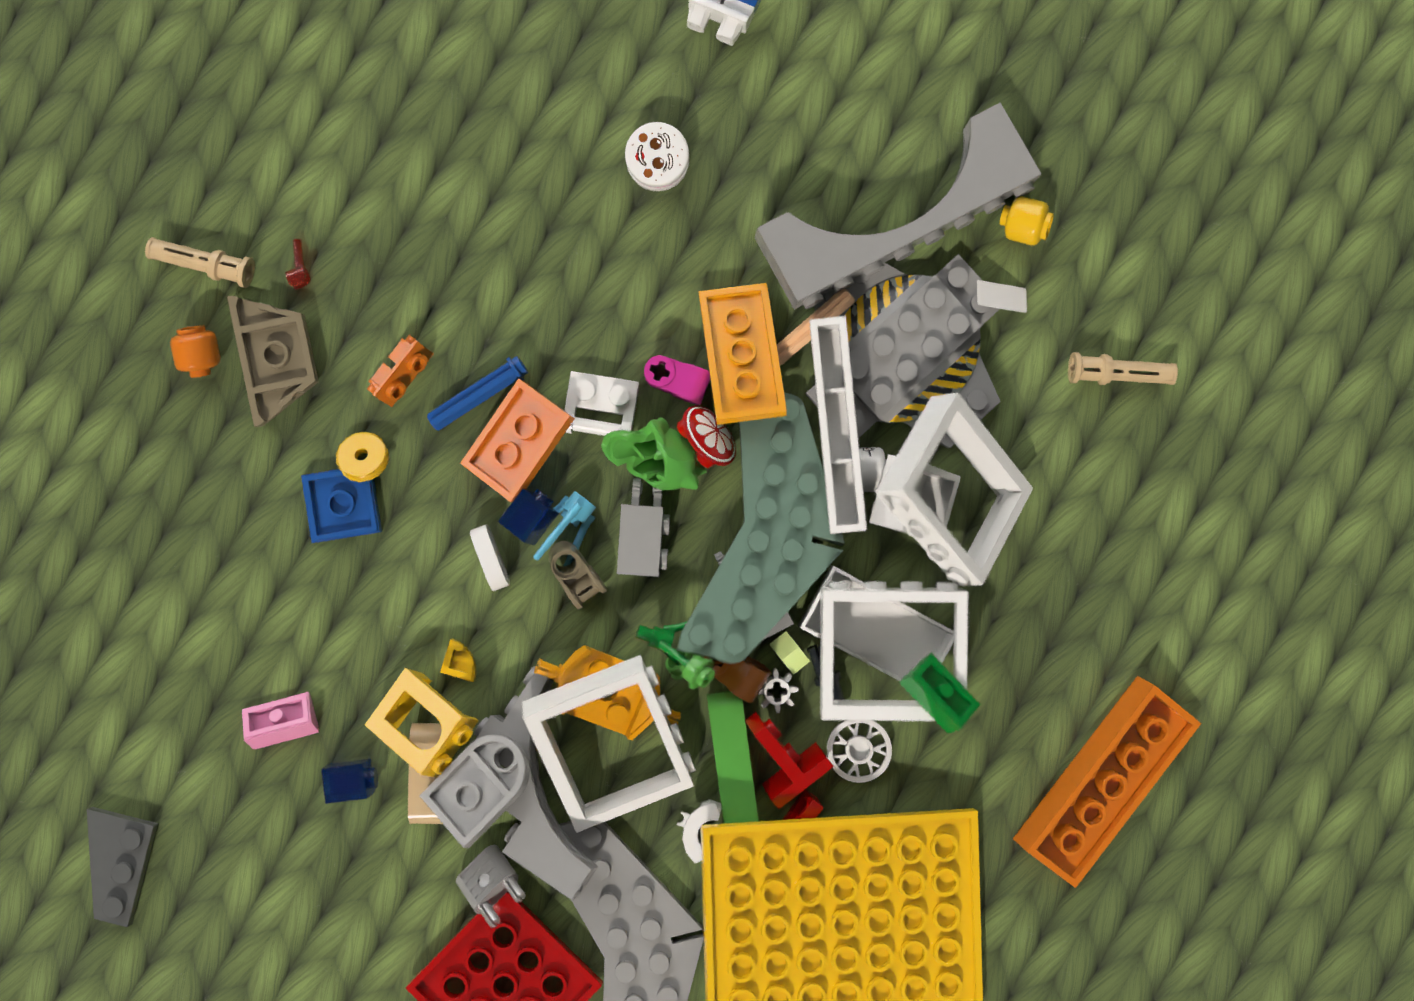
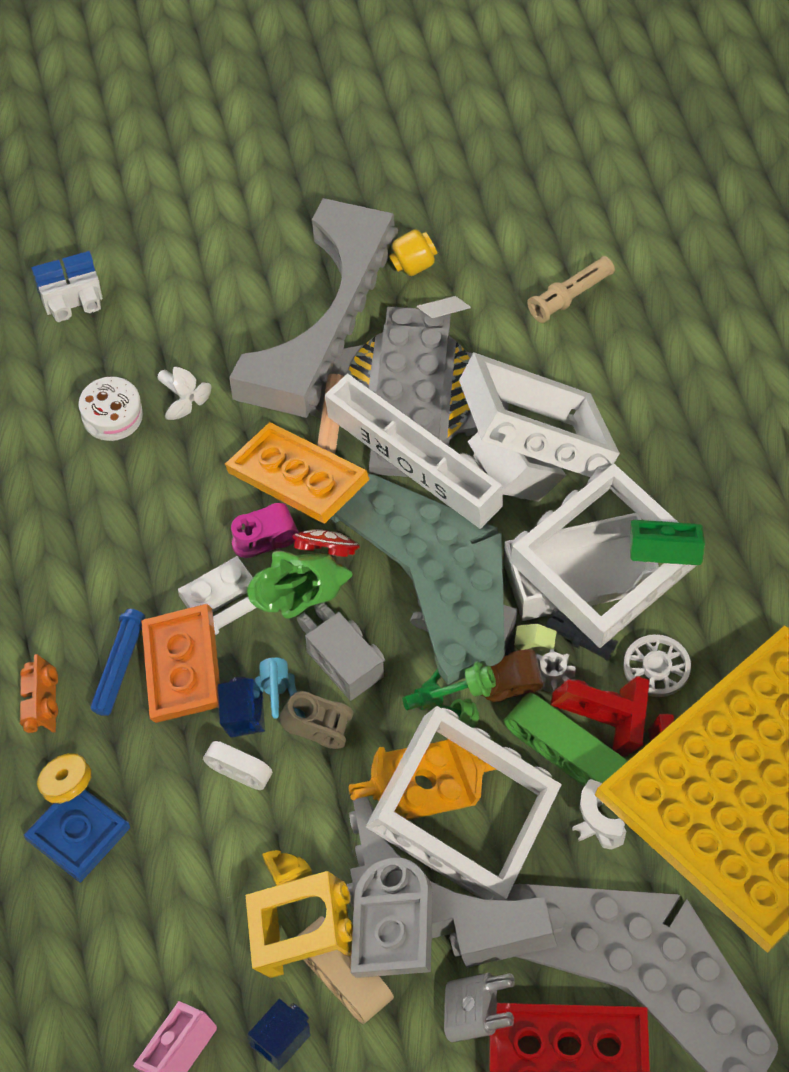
camera: 40 degrees left, 30 degrees down
(725, 191) = (183, 384): none -> white plant

